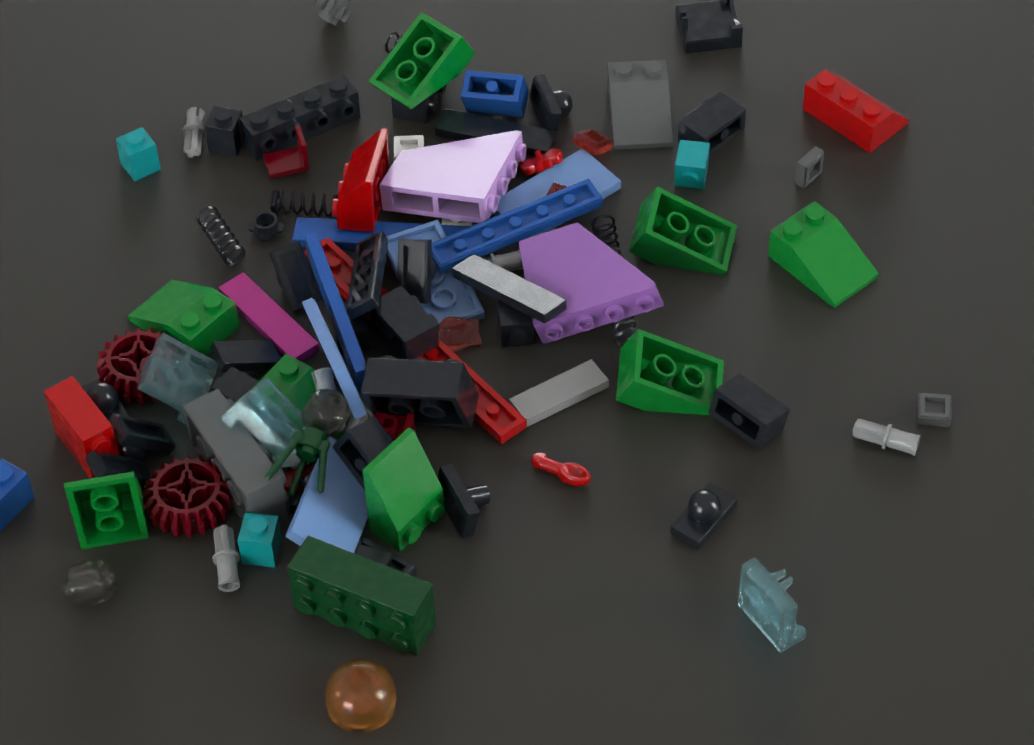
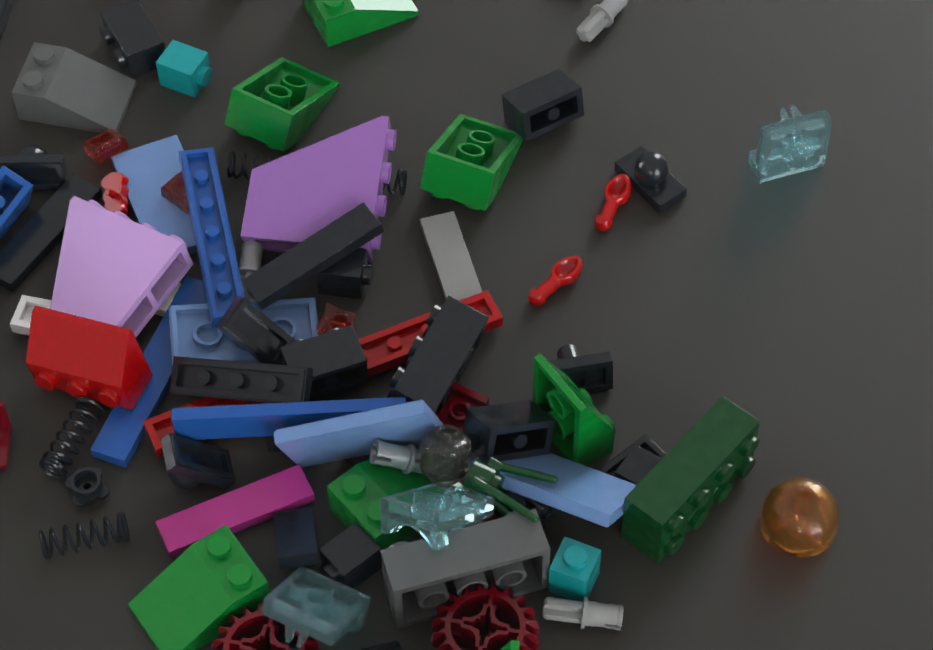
camera: 75 degrees left, 5 degrees up
(673, 492) = (615, 194): none -> red piece

